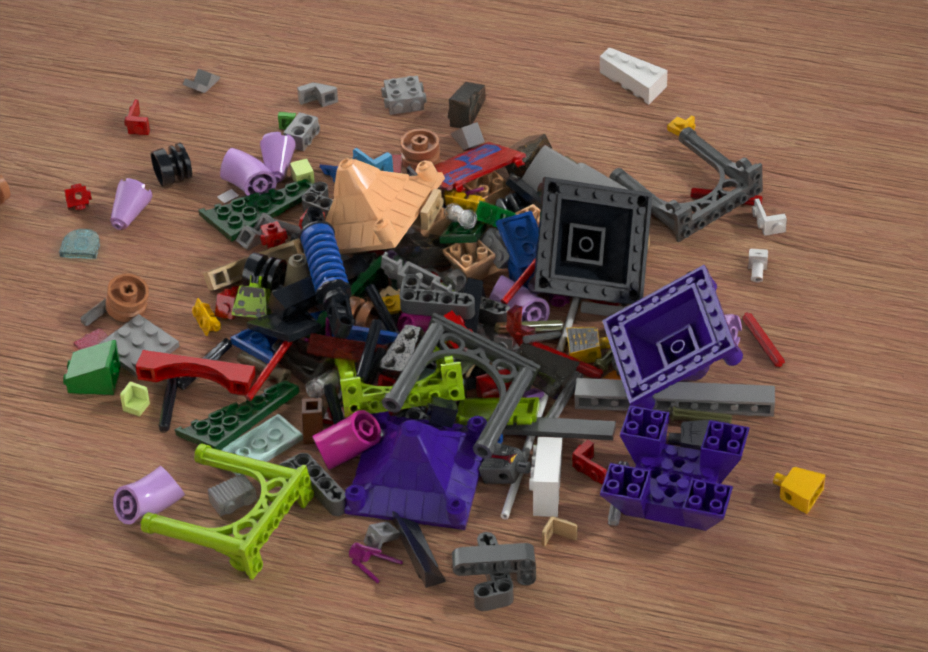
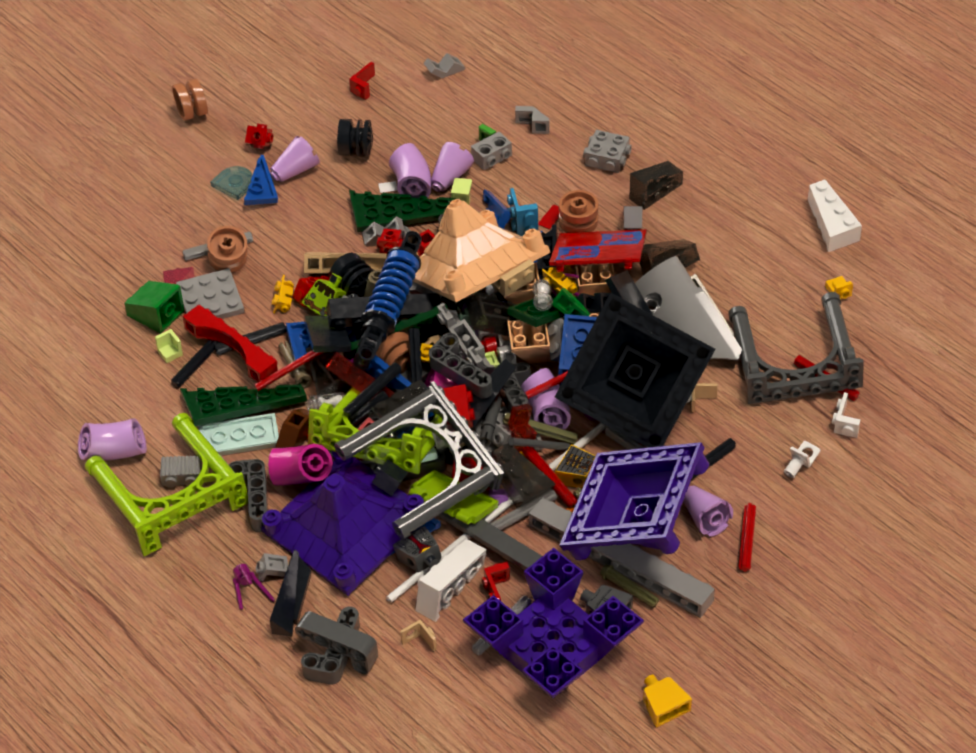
camera: 30 degrees right, 5 degrees up
(111, 237) = (261, 188): none -> blue wing

